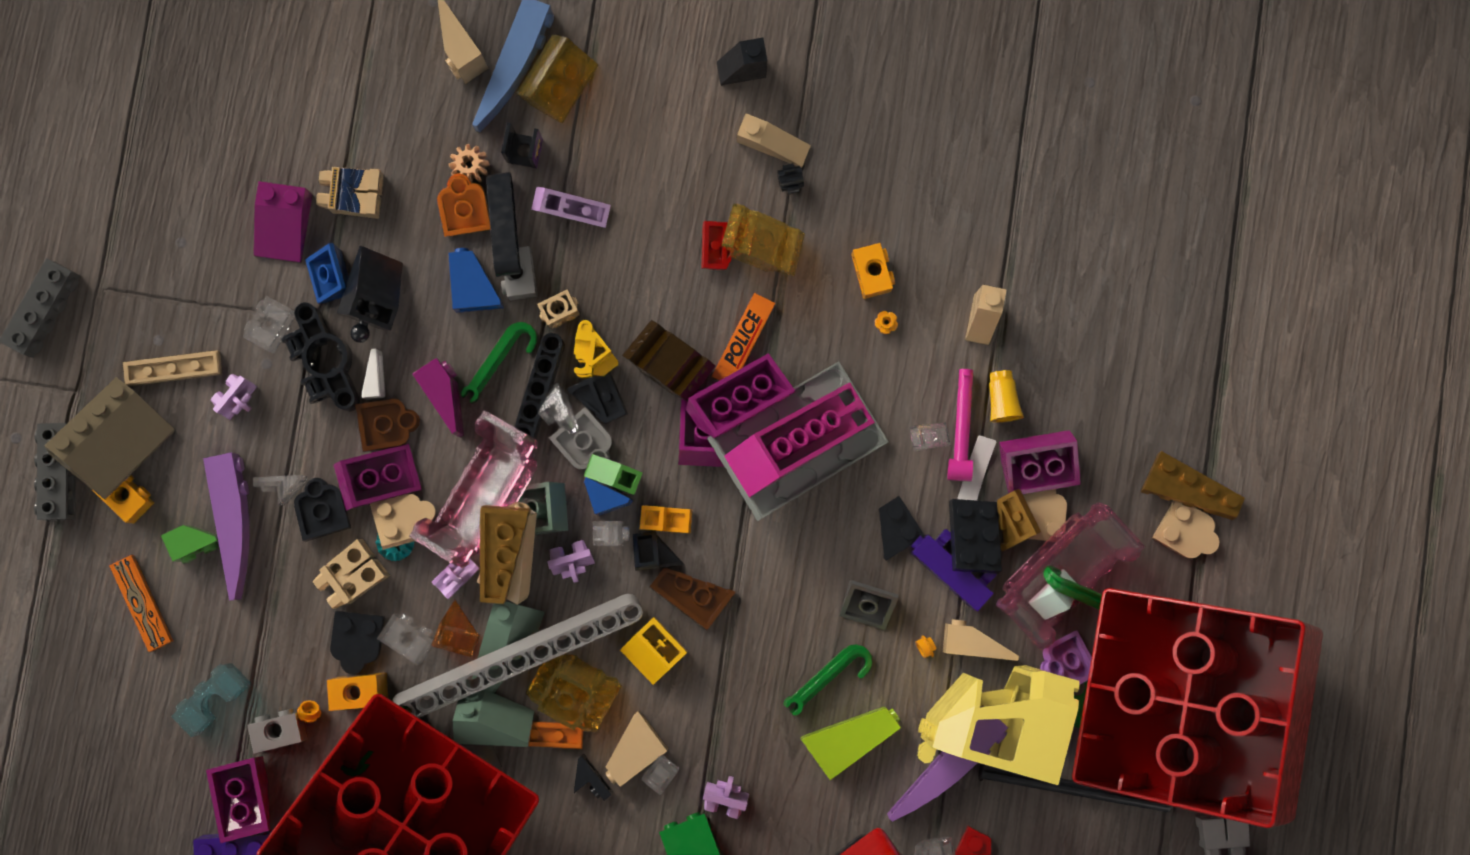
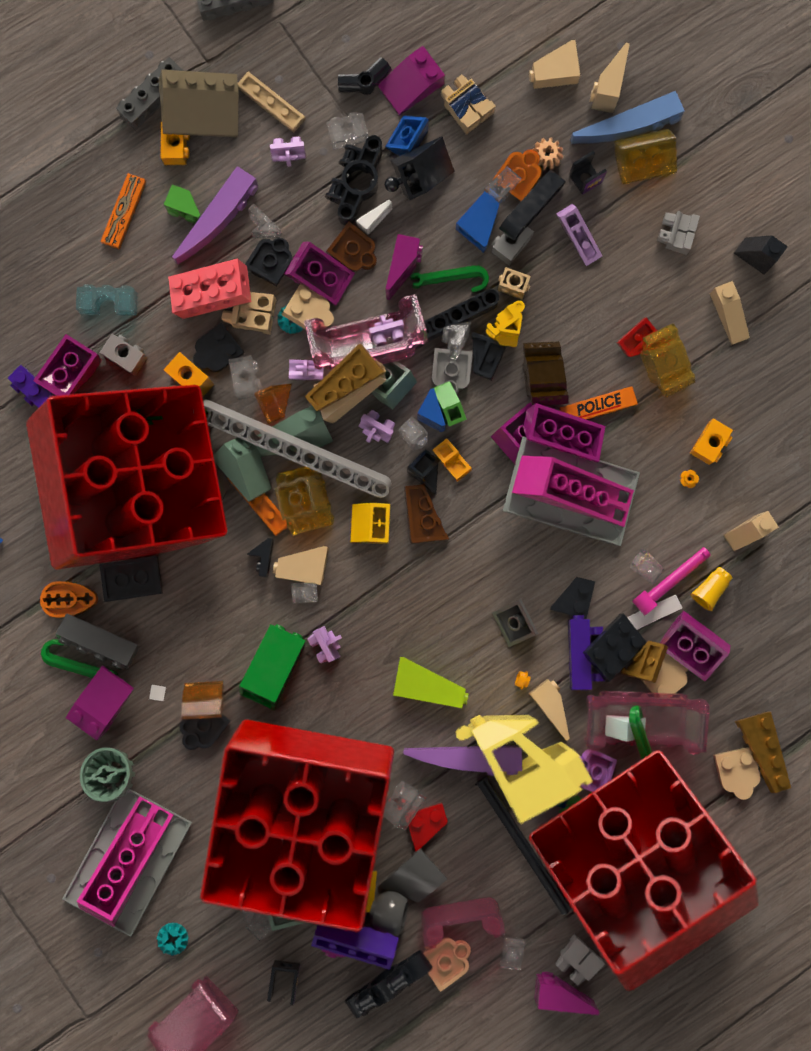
camera: 50 degrees right, 0 degrees up
(240, 249) = (374, 75): none -> black piece
(294, 594) = (209, 289): none -> coral brick
(308, 711) = (151, 361): light orange plate -> none
(397, 79) = (556, 68): none -> tan slope
(459, 233) = (503, 185): none -> clear slope
(489, 466) = (386, 329): none -> lavender hips
(657, 113) = (681, 232): none -> light grey hips
(790, 178) = (719, 343): black gear -> none
(827, 674) = (453, 637): green piece -> none

